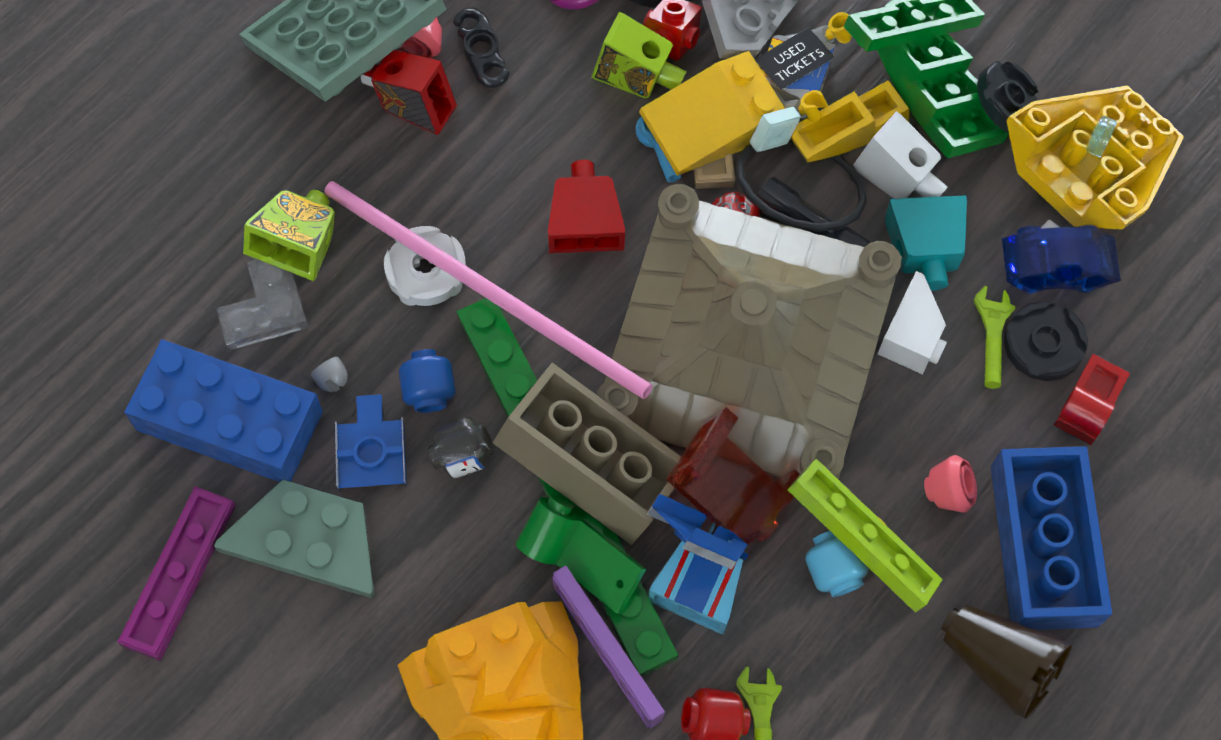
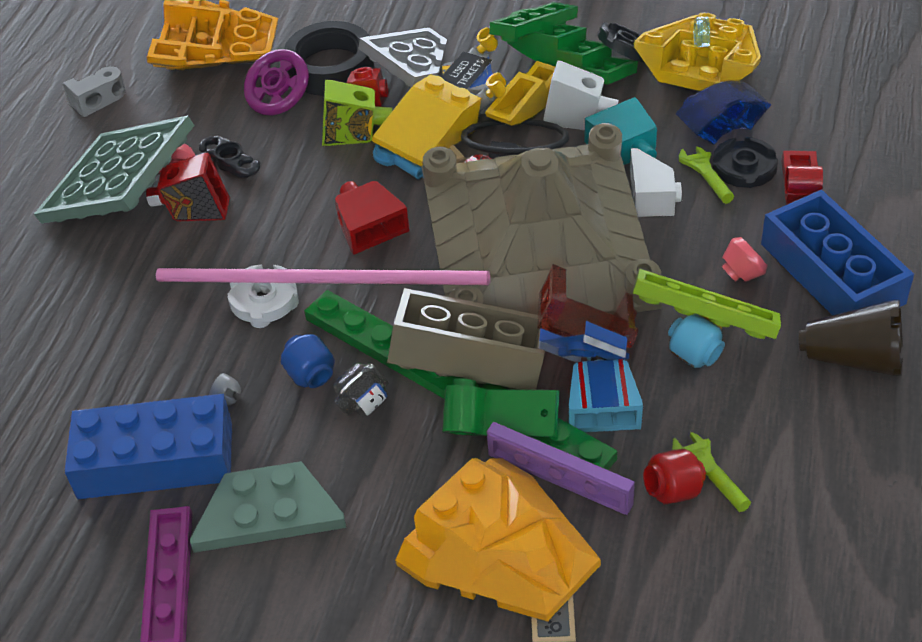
camera: 20 degrees left, 20 degrees down
(268, 315) = (151, 370): clear plate -> none
(291, 232) = (142, 310): lime torso -> none
(371, 449) = (285, 424): blue piece -> none
(775, 129) = (477, 110): light aqua tile -> none

